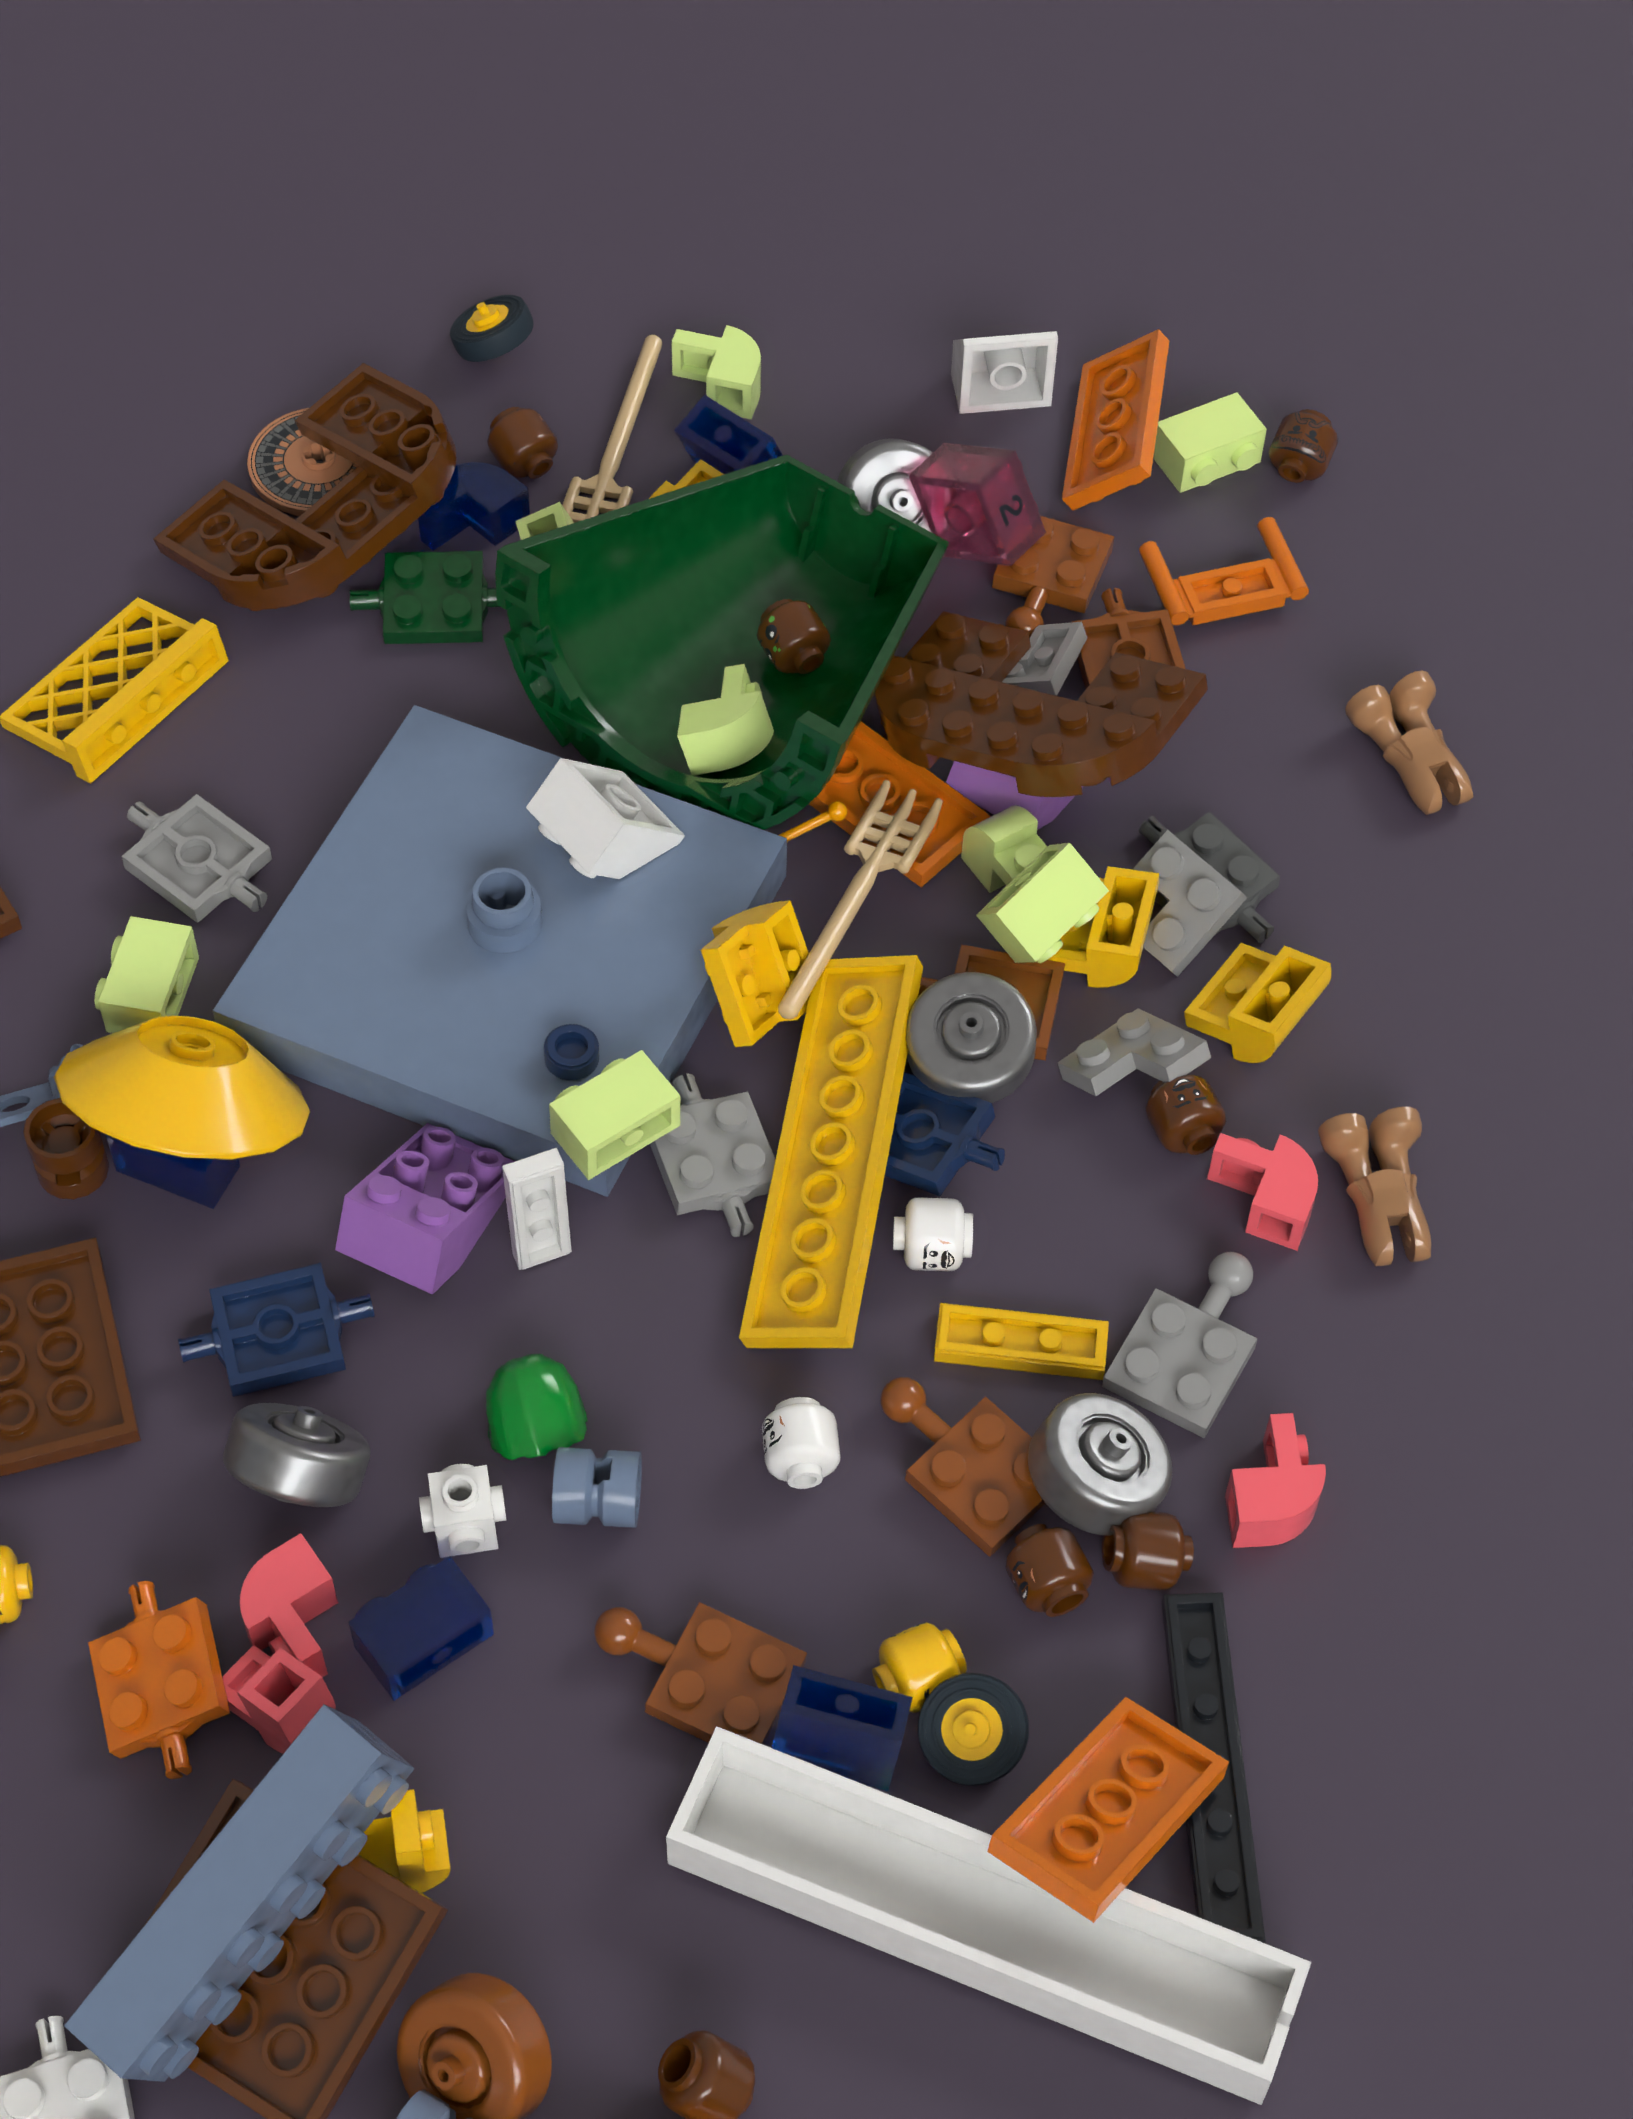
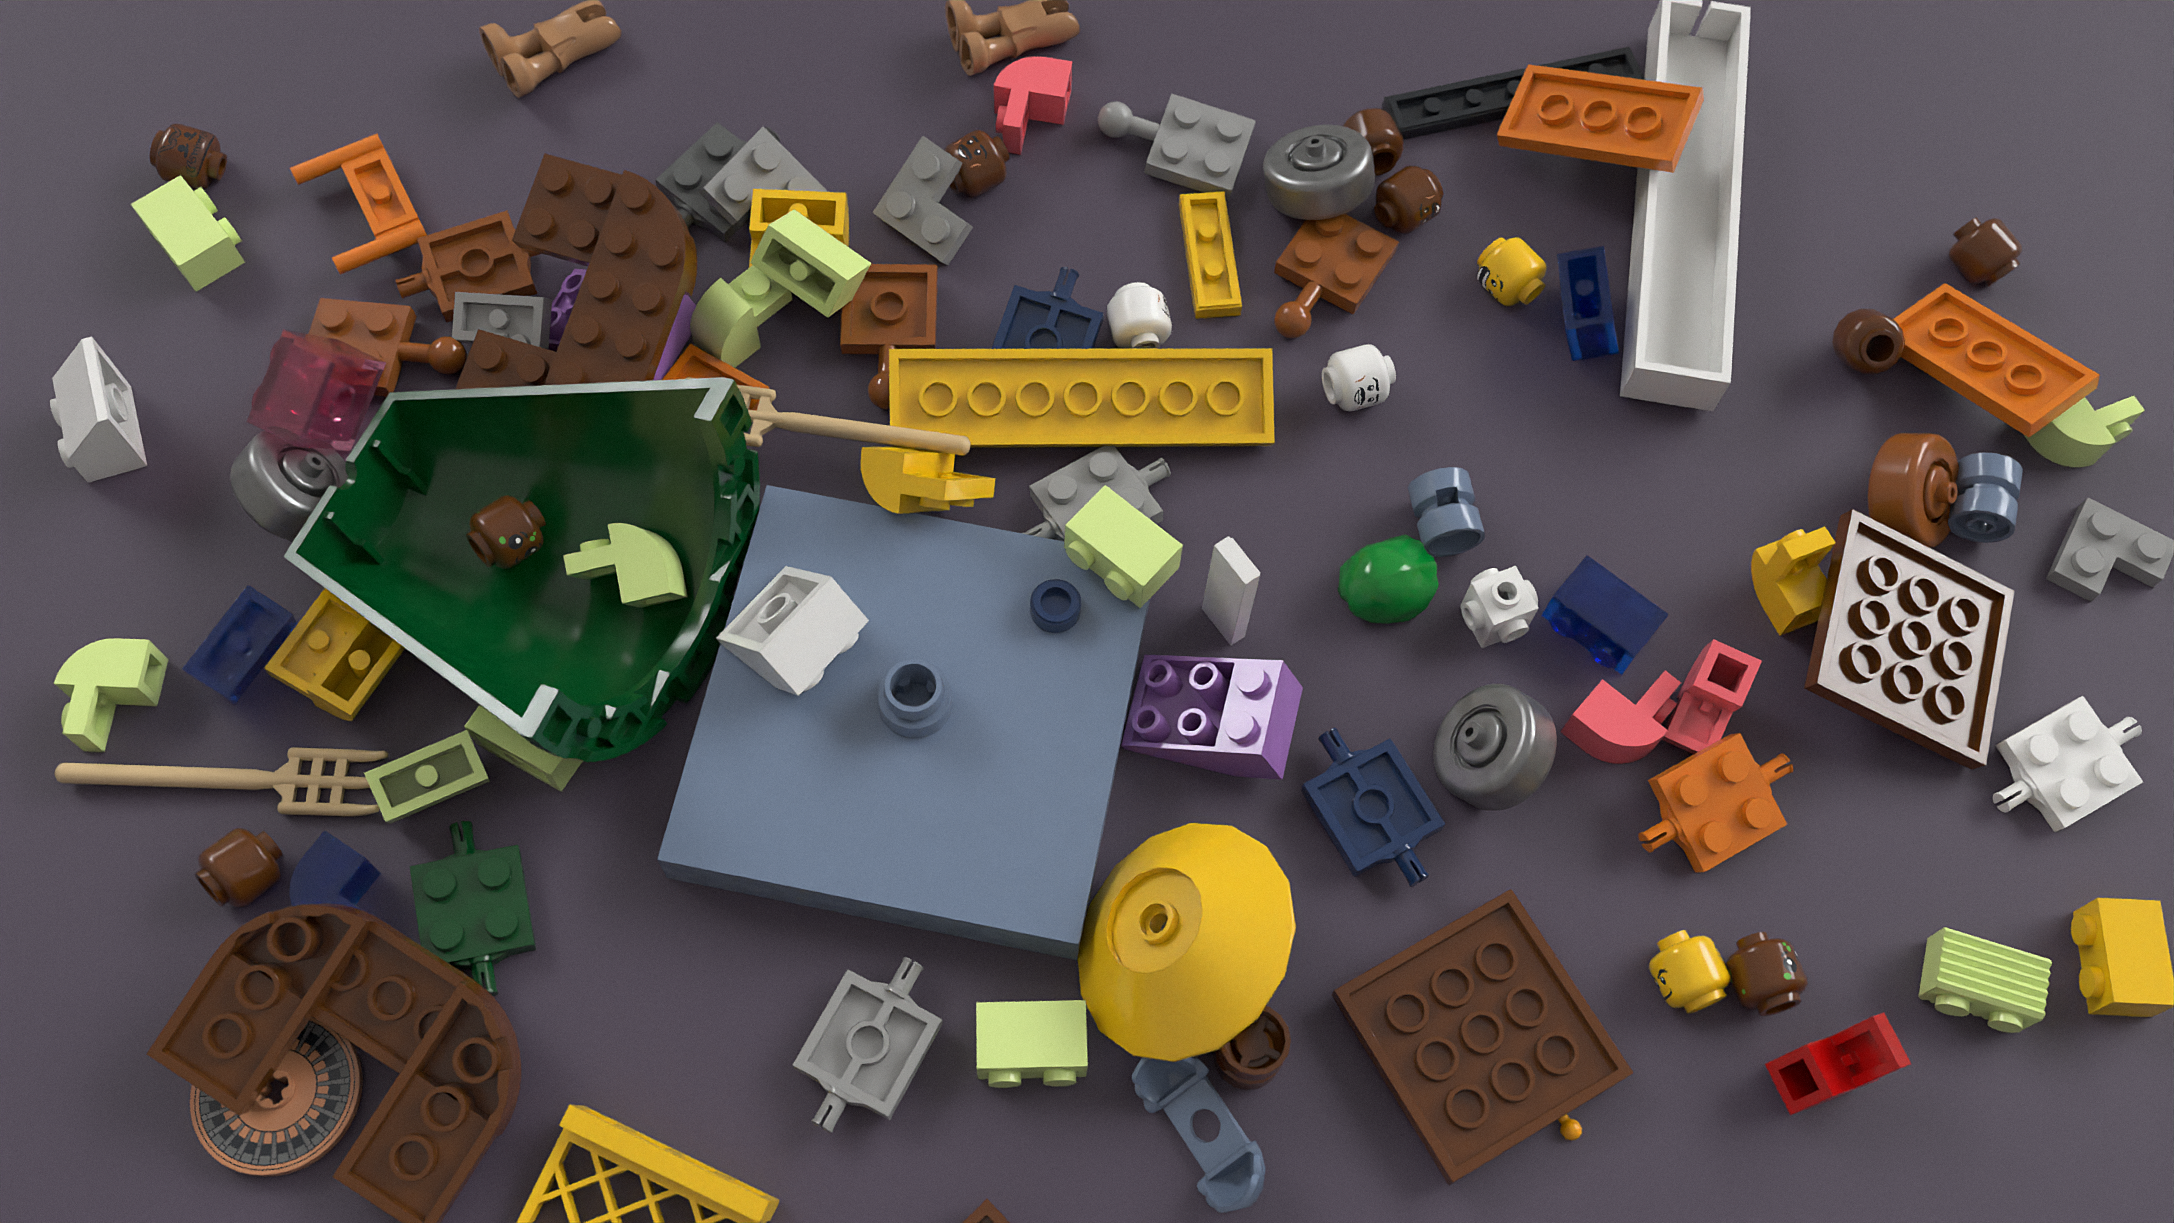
camera: 105 degrees left, 10 degrees up
(241, 1899) = (1921, 630): sand blue brick -> none
(491, 328) = (55, 945): black wheel -> none
(713, 1676) = (1565, 404): dark orange plate -> none
(971, 1037) = (952, 303): flat silver wheel -> none
(973, 1729) = (1550, 223): black wheel -> none
(1116, 420) = (171, 303): orange plate -> none
(1258, 999) = (854, 119): yellow brick -> none
(1277, 1500) = (1297, 62): coral brick -> none

